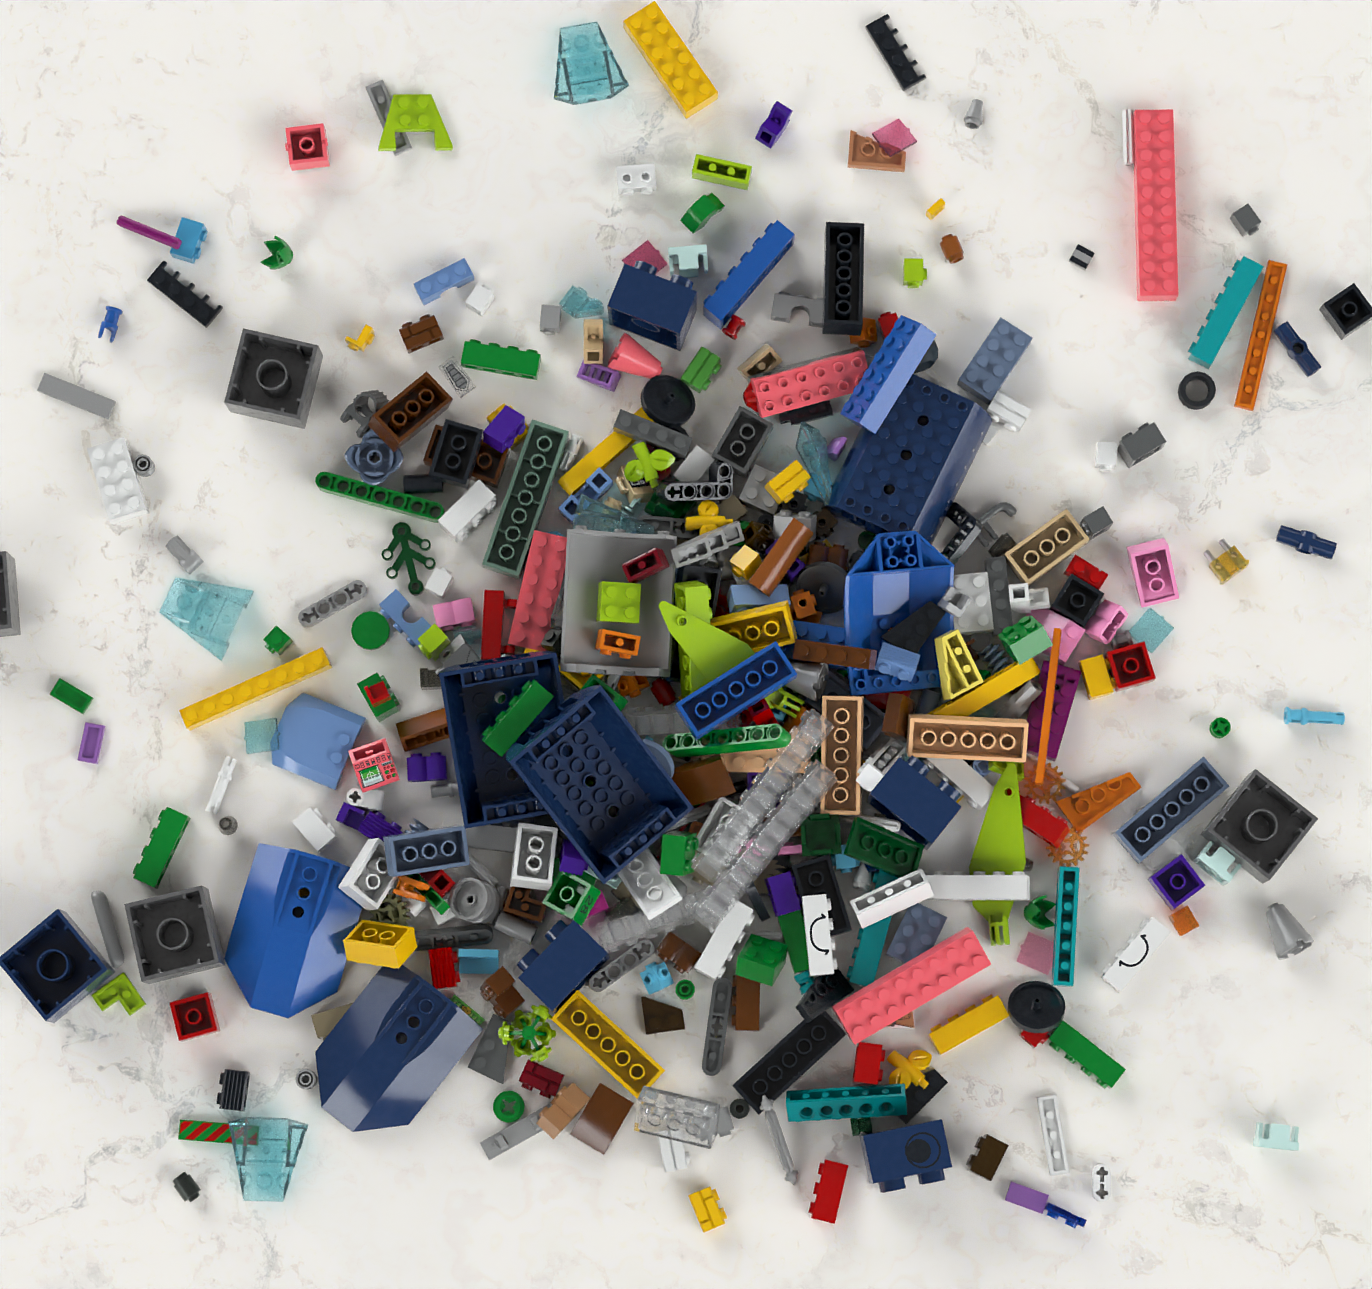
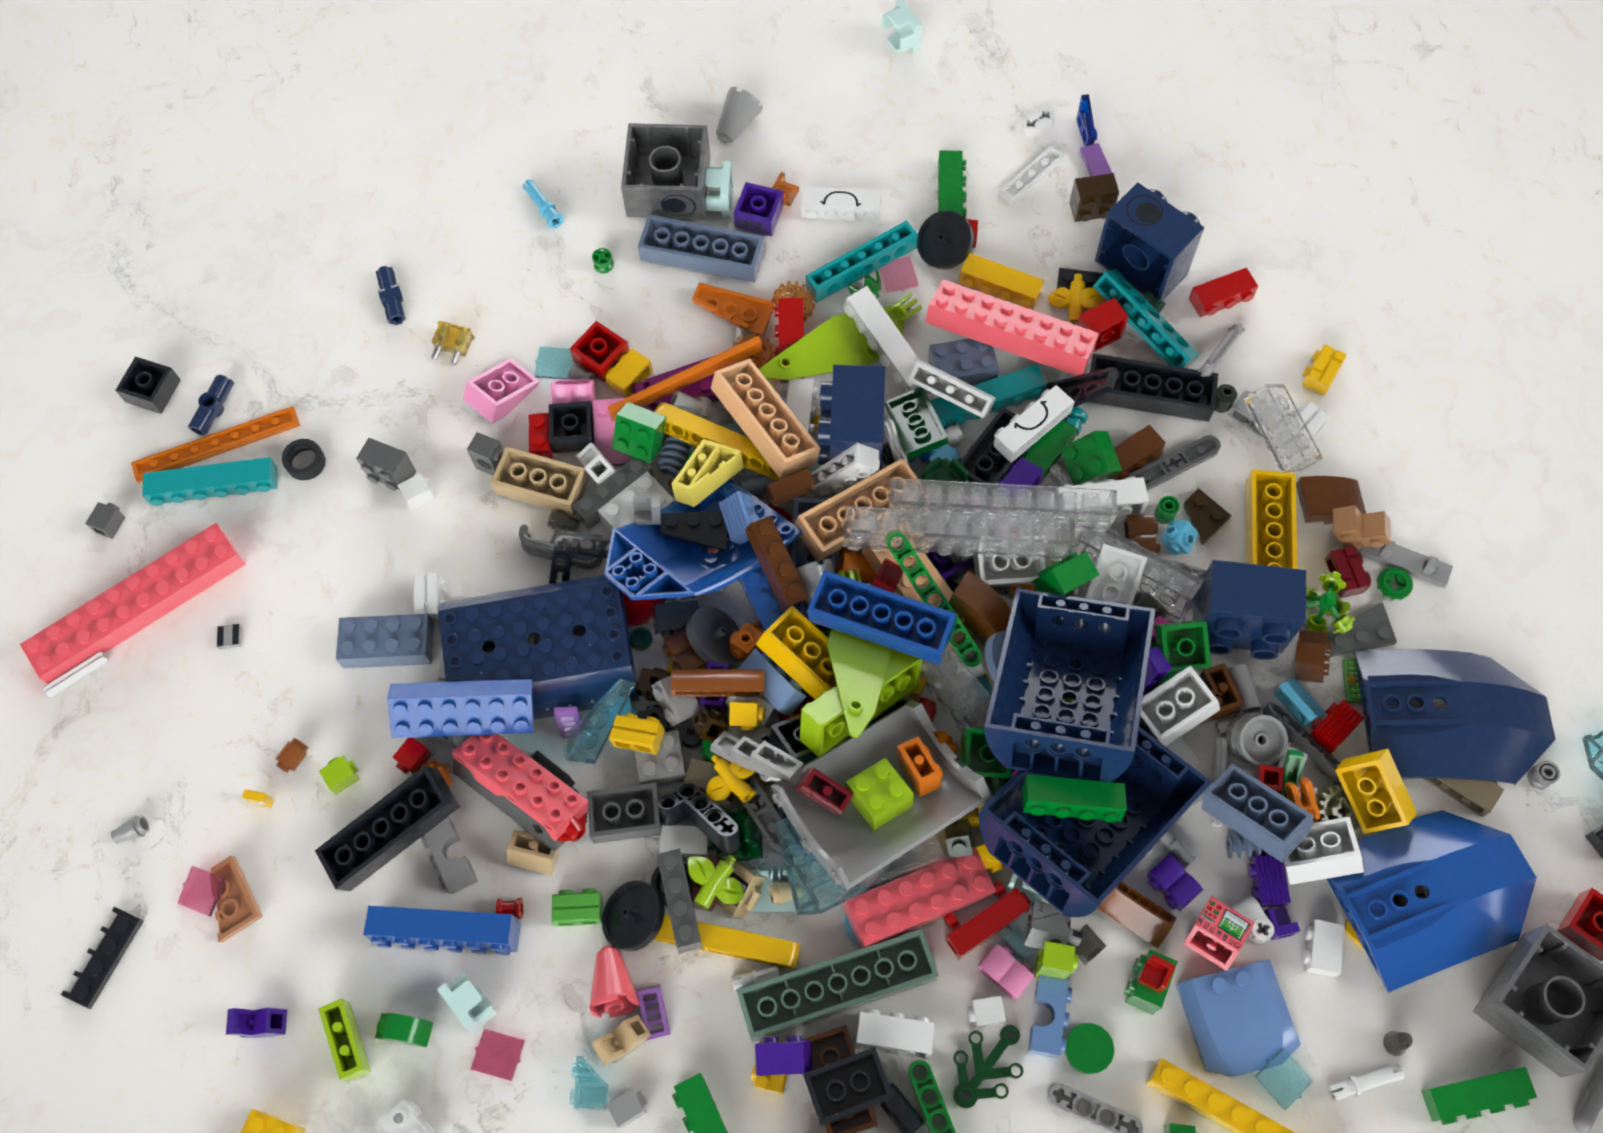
camera: 125 degrees left, 15 degrees down
(594, 488) = (799, 929): medium blue arch -> none
(653, 305) = (540, 995): dark blue brick -> none

